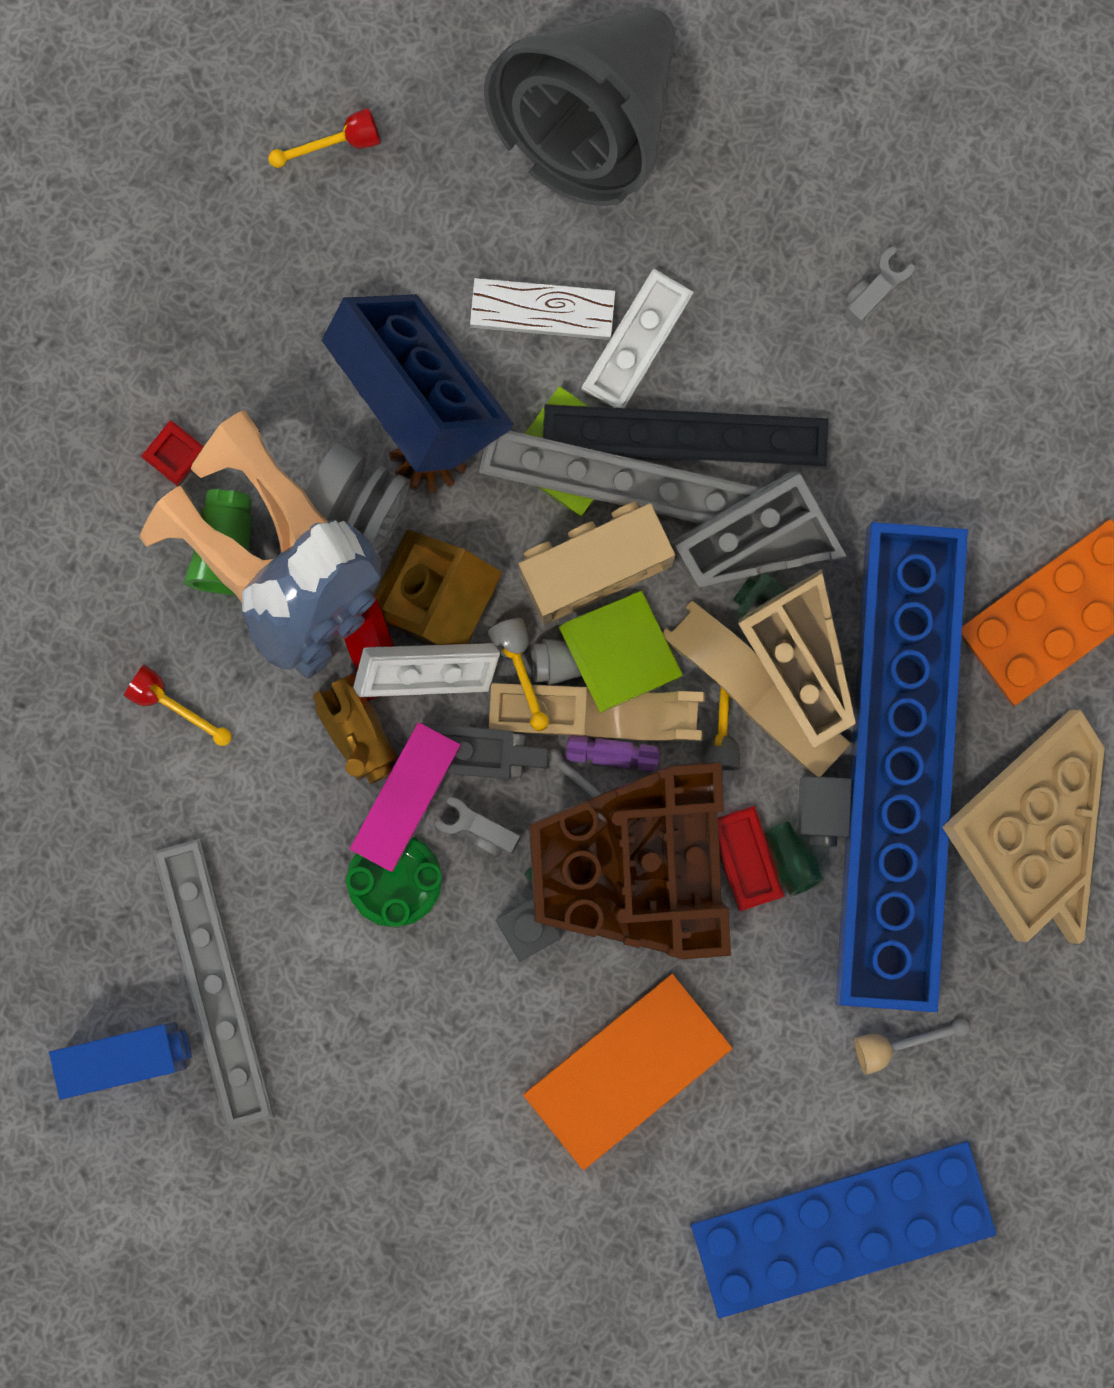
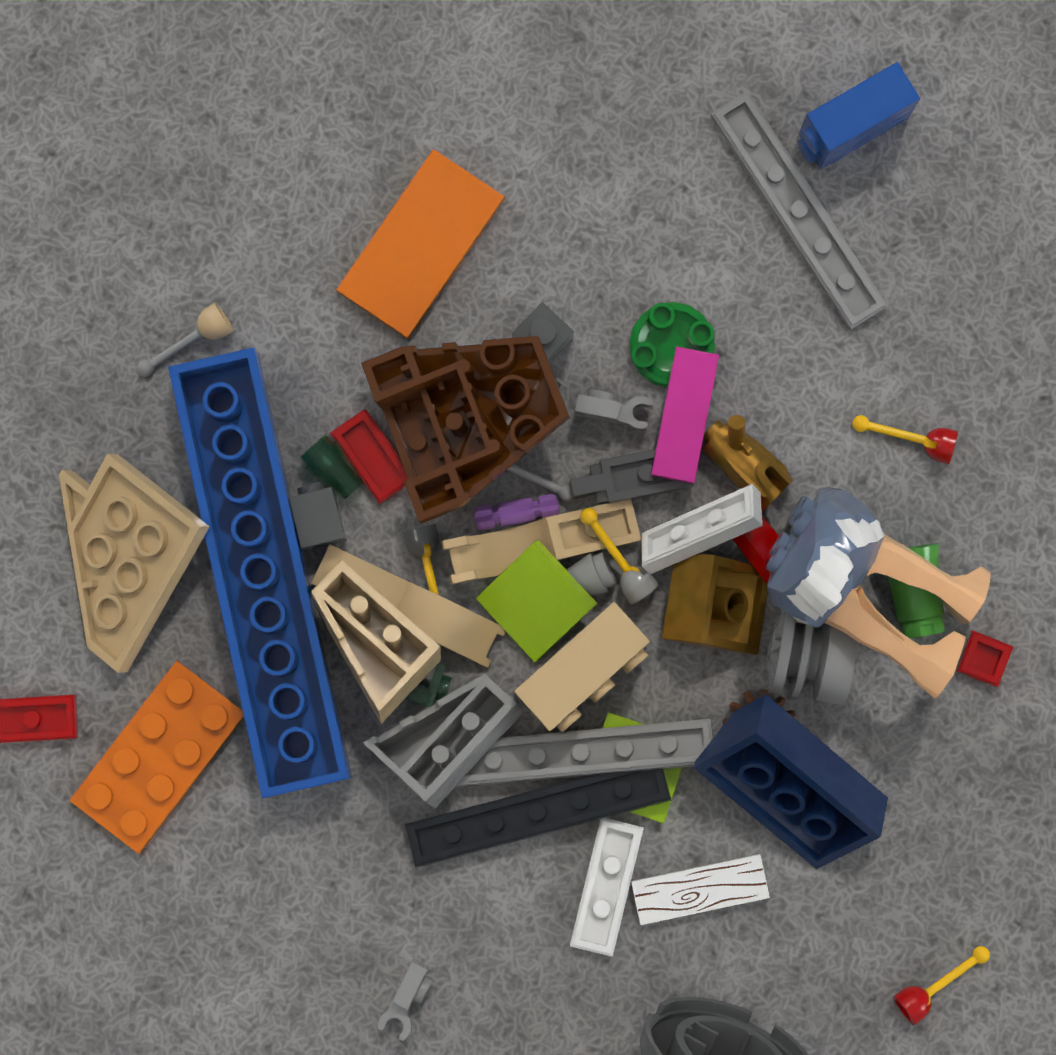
camera: 165 degrees right, 0 degrees up
(843, 1229) = (197, 167): blue plate -> none

